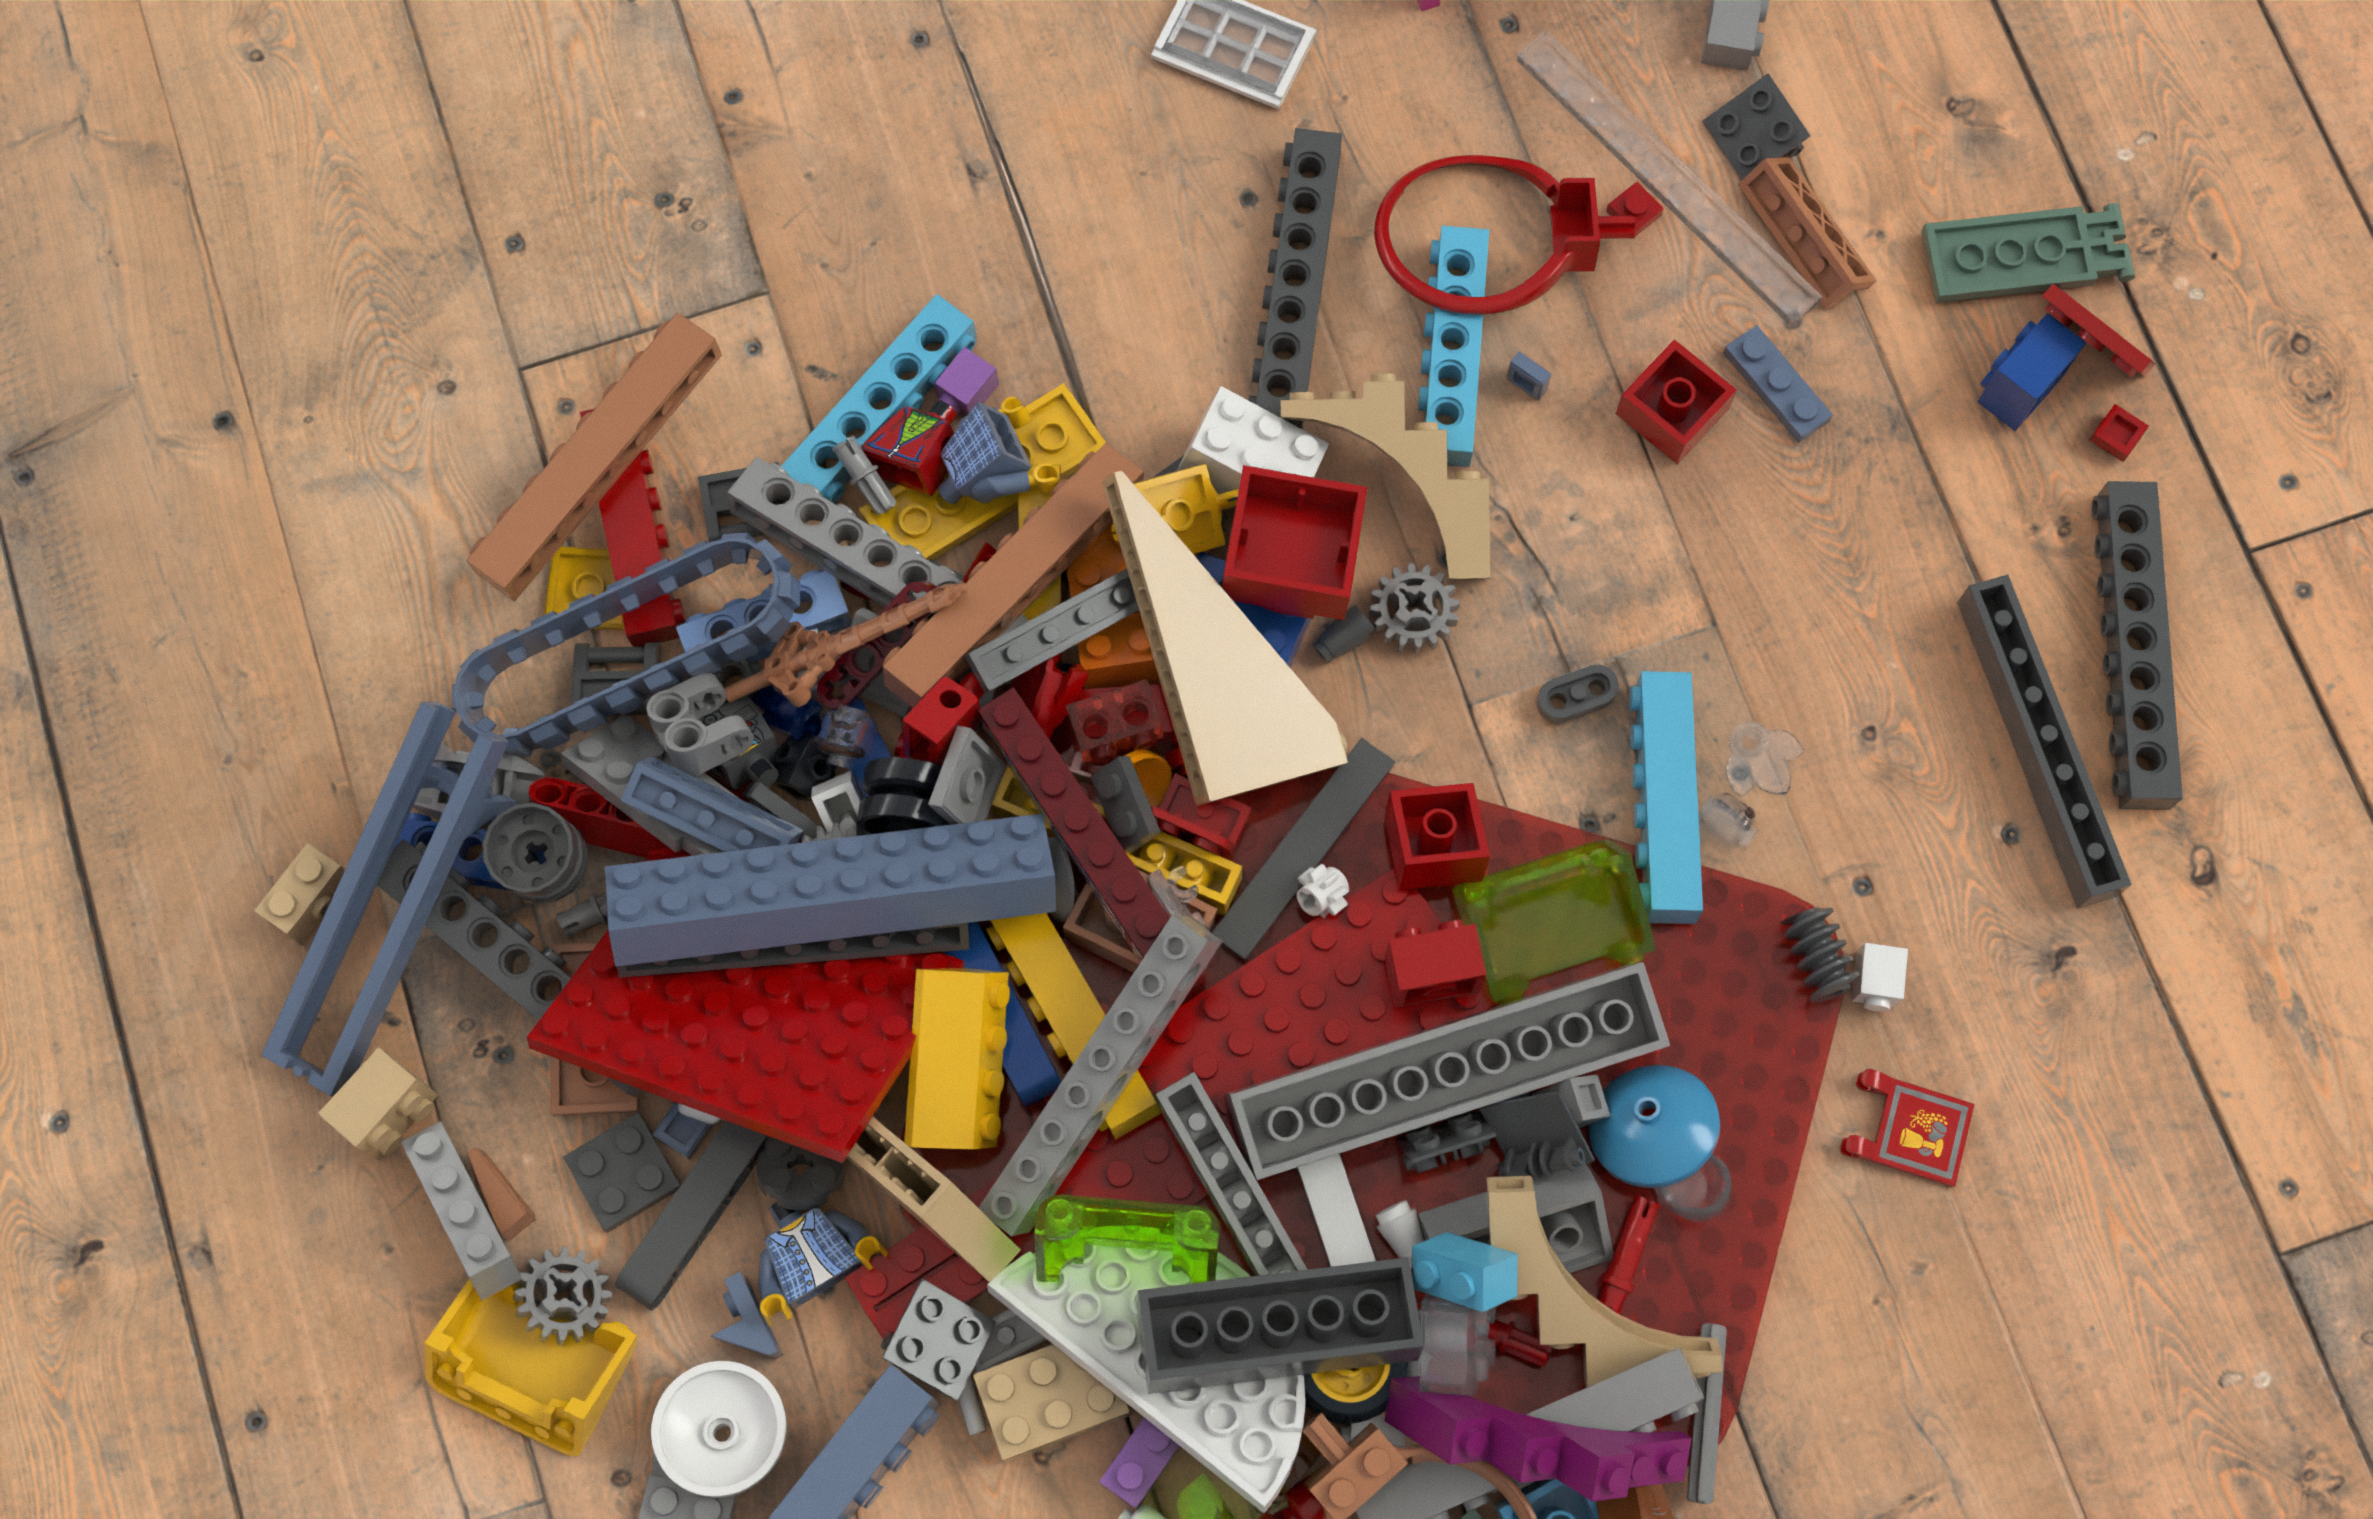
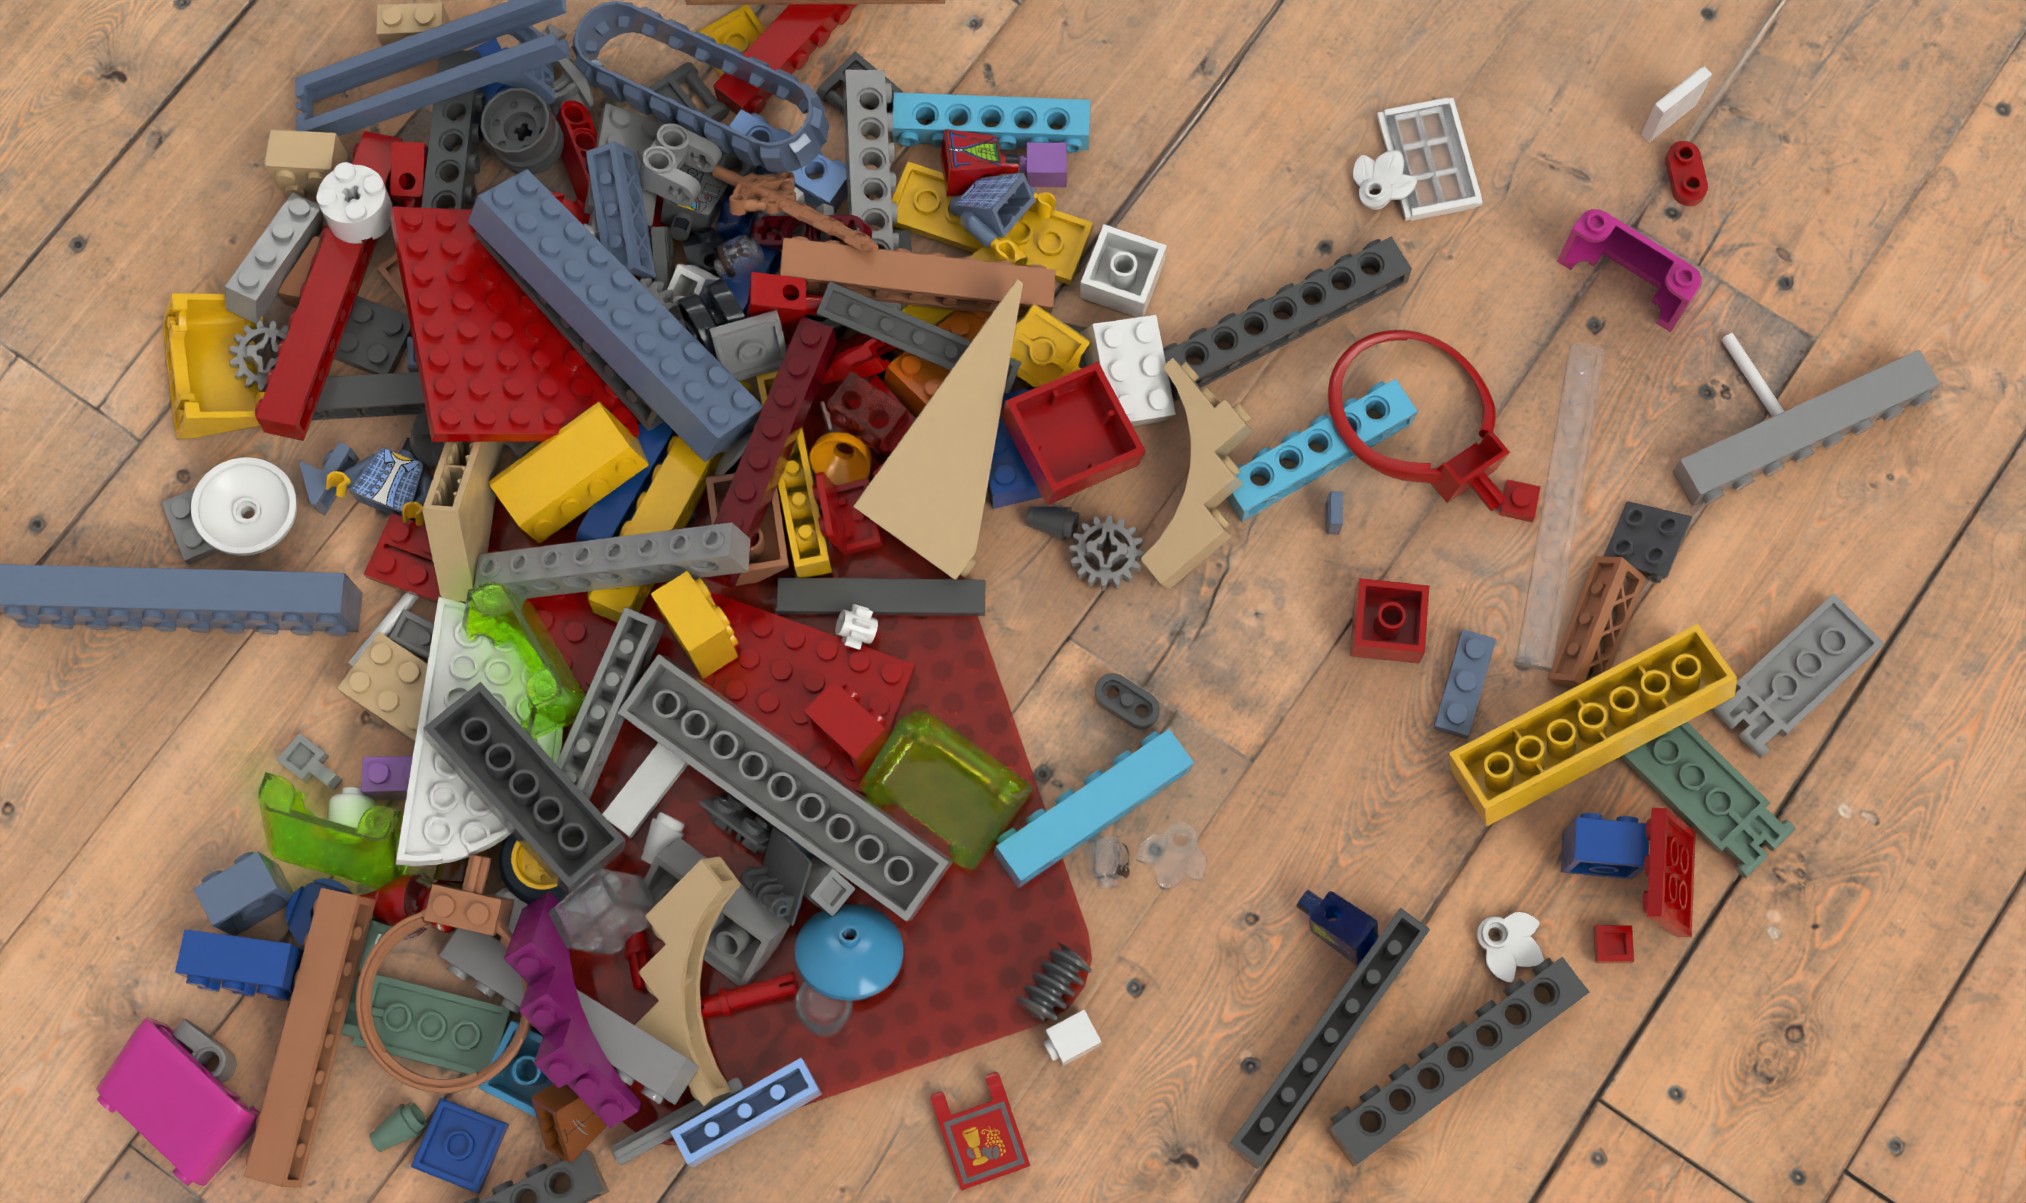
camera: 55 degrees right, 0 degrees up
(473, 997) = (408, 173): none -> red torso
(478, 1056) = (355, 203): none -> white brick
(542, 1171) = (321, 315): none -> red brick
(864, 475) = (927, 146): light grey axle -> none
(938, 1340) = (387, 595): hinge -> none
(1125, 804) = (811, 455): dark grey plate -> none
(1139, 390) = (1123, 271): none -> white brick
(1170, 895) = (766, 527): clear plate -> none
(1220, 93) = (1382, 174): none -> white plate
(1224, 1036) = (696, 623): none -> yellow brick
(1436, 836) = (945, 671): red brick -> none
(1465, 1271) = (642, 883): medium azure brick -> none
(1752, 1336) = (746, 1113): none -> light blue brick
(1908, 299) = (1592, 724): none -> yellow brick
(1955, 645) = (1352, 931): none -> clear blue torso
(1976, 98) = (1798, 674): none -> light grey hinge
(2059, 520) = (1514, 947): none -> white plate

